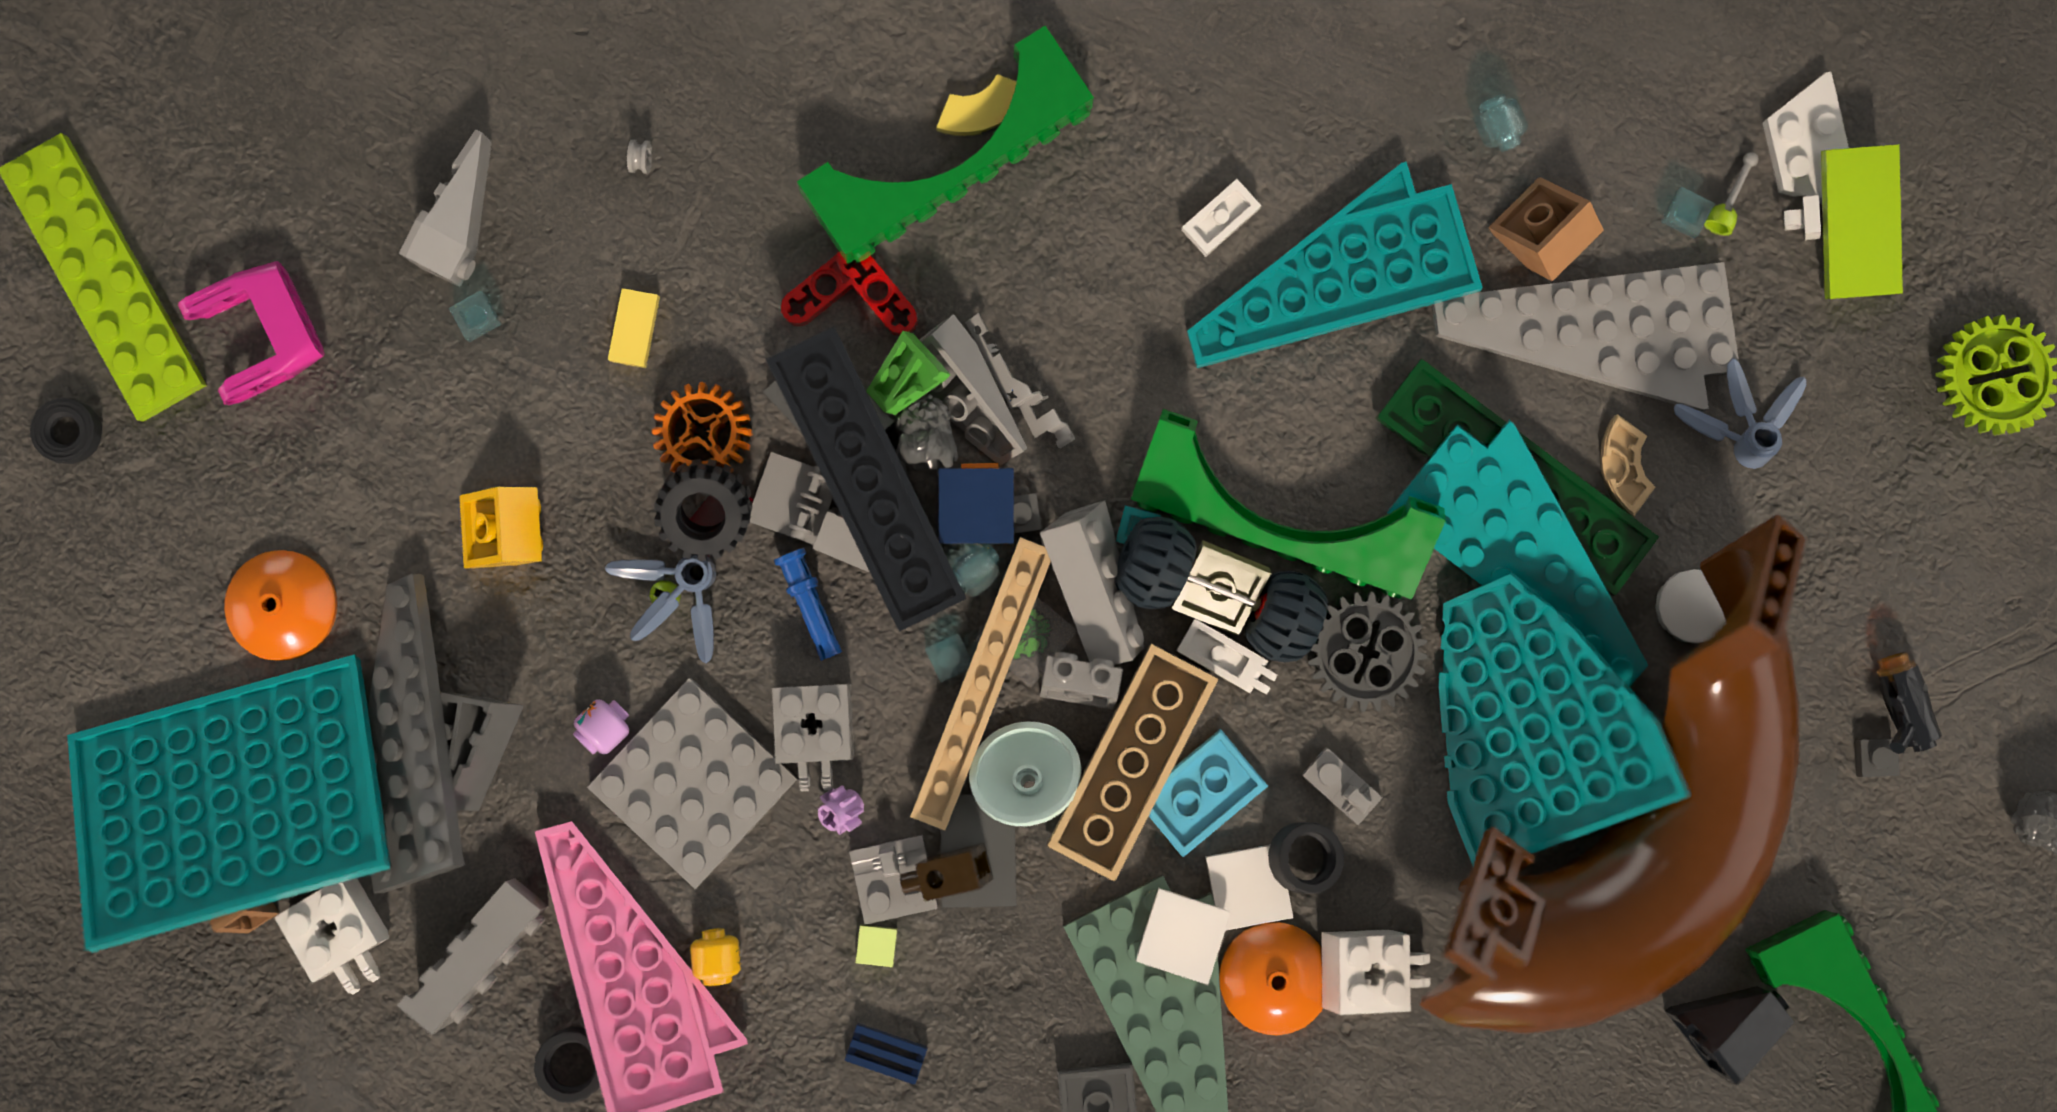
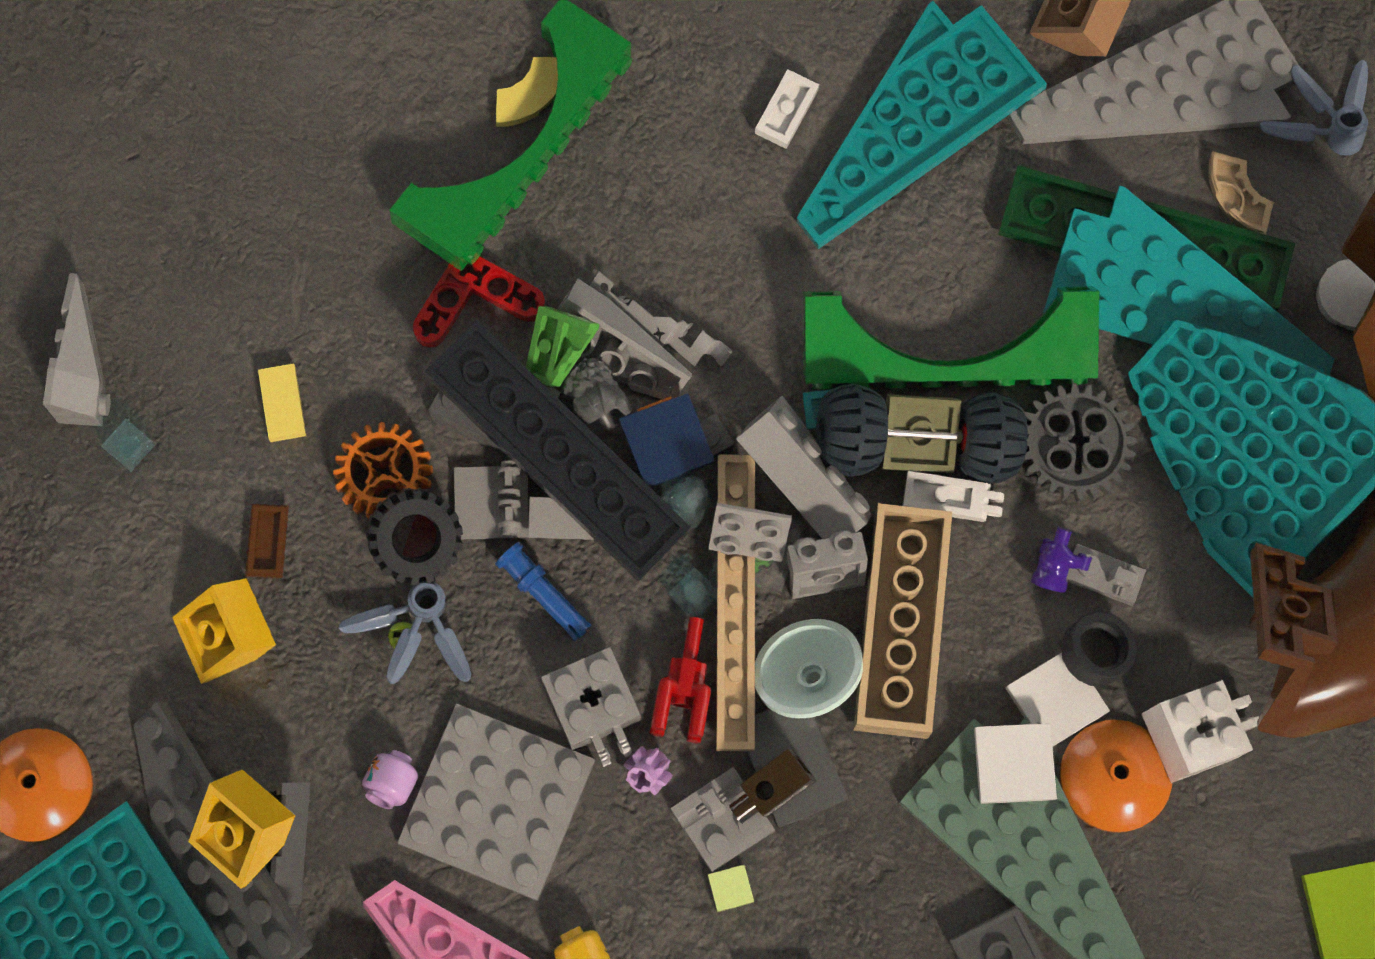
camera: 25 degrees left, 10 degrees down
(437, 730) = (240, 827): none -> yellow slope
(571, 456) = (267, 541): none -> reddish brown tile
(639, 156) = (230, 245): light grey bush -> none
(904, 744) = (684, 687): none -> red plant
(1023, 633) = (749, 532): none -> light grey hinge
(1204, 792) = (981, 629): medium azure tile -> none
(1299, 761) = (1056, 561): none -> dark purple piece

